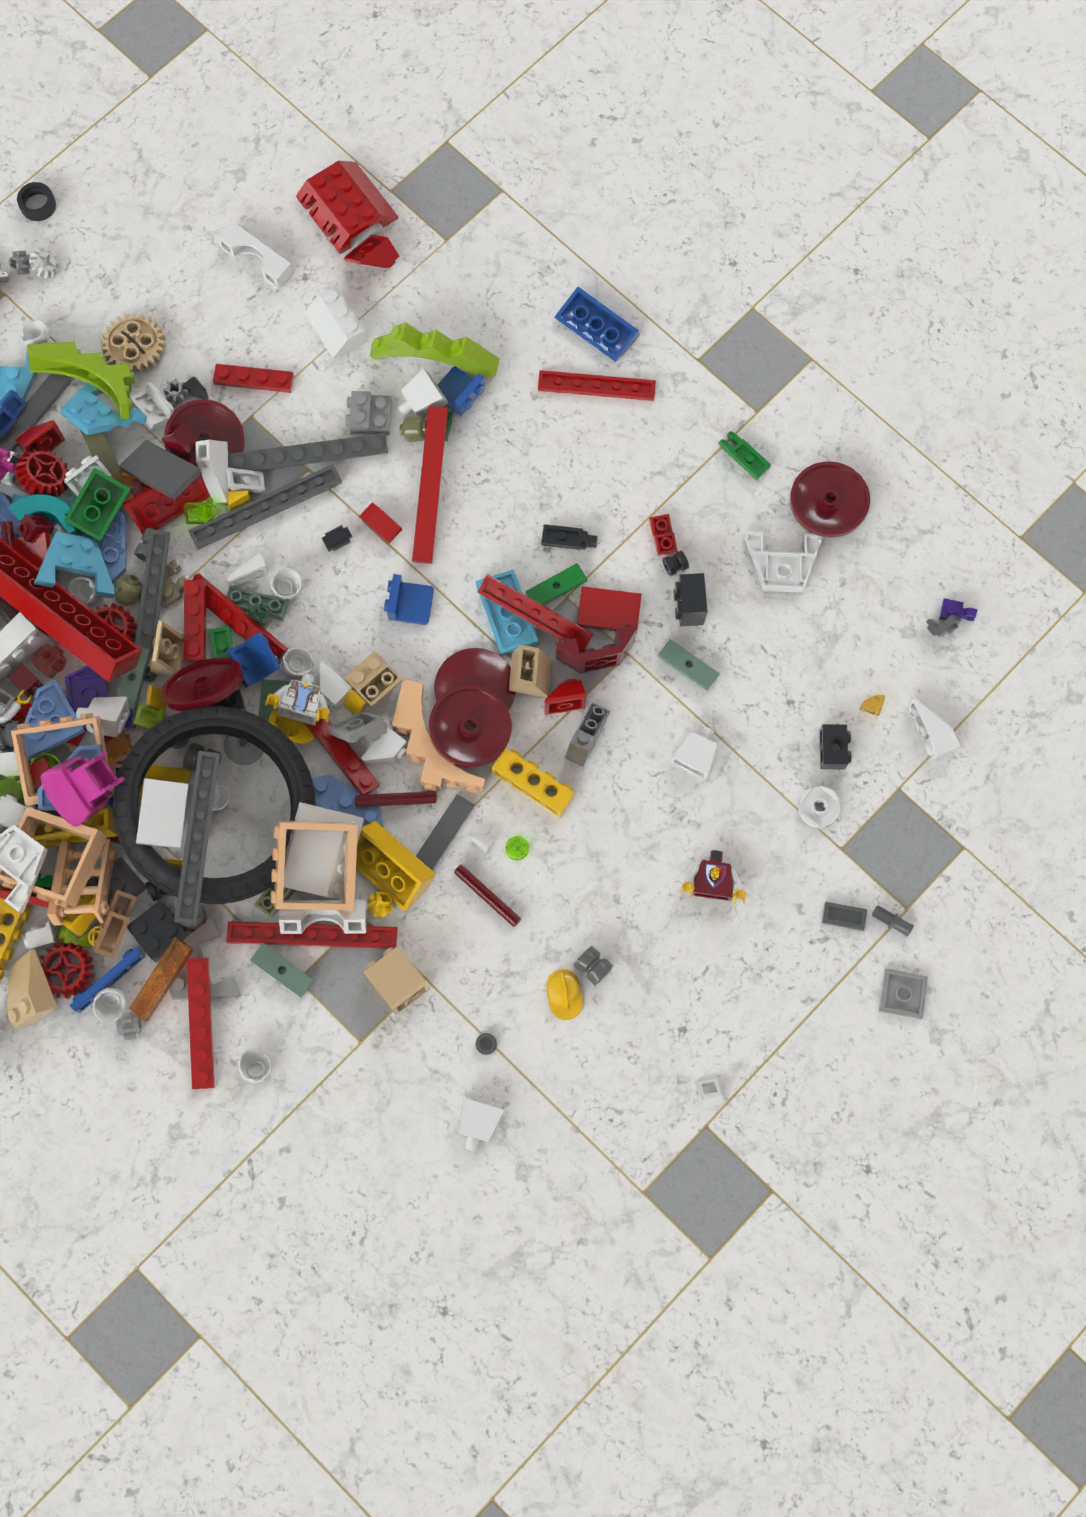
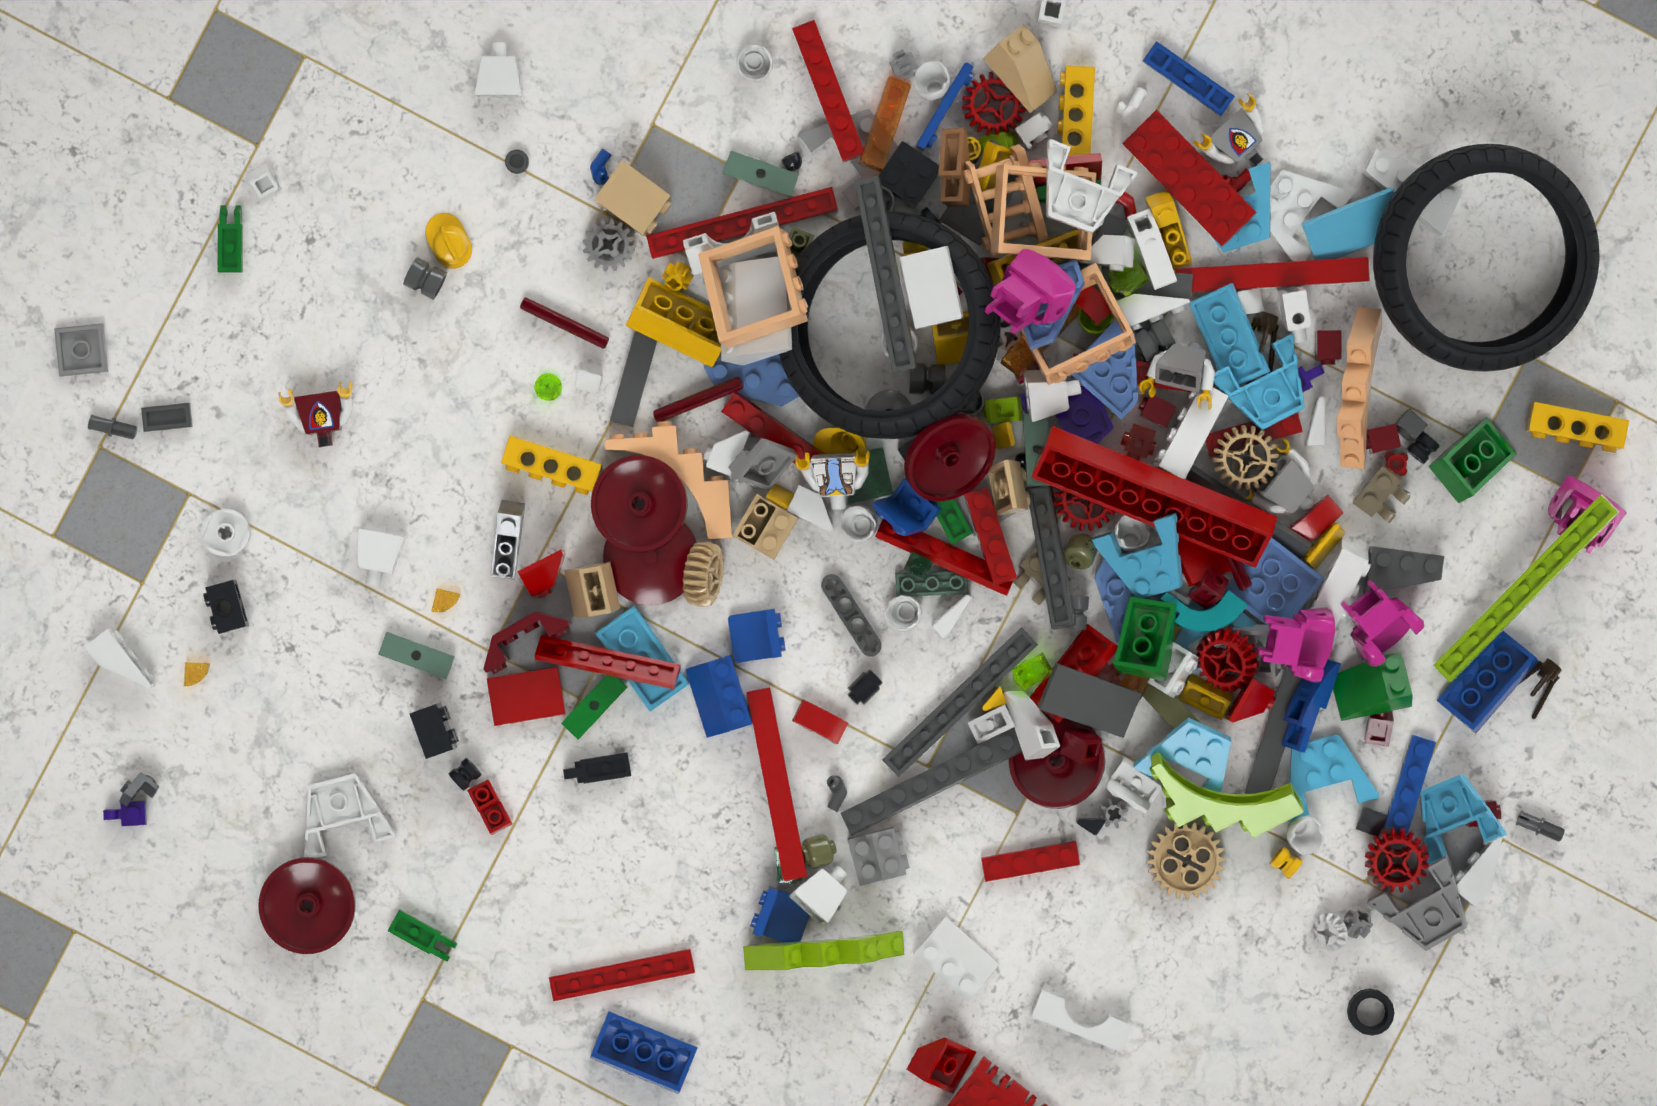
camera: 170 degrees right, 15 degrees up
(56, 319) = (1290, 866): none -> yellow wheel
(70, 452) = (1205, 697): none -> yellow slope
(252, 974) = (792, 162): none -> black hinge
(326, 597) = (848, 617): none -> dark grey beam
(384, 468) = (838, 791): none -> dark grey arm
(418, 1016) = (598, 168): none -> blue arm
(419, 951) = (597, 253): none -> light grey gear
(435, 656) = (703, 574): none -> tan gear
(454, 564) = (718, 696): none -> blue slope
(653, 702) = (444, 600): none -> clear yellow tile
(751, 1047) = (230, 242): none -> green hinge

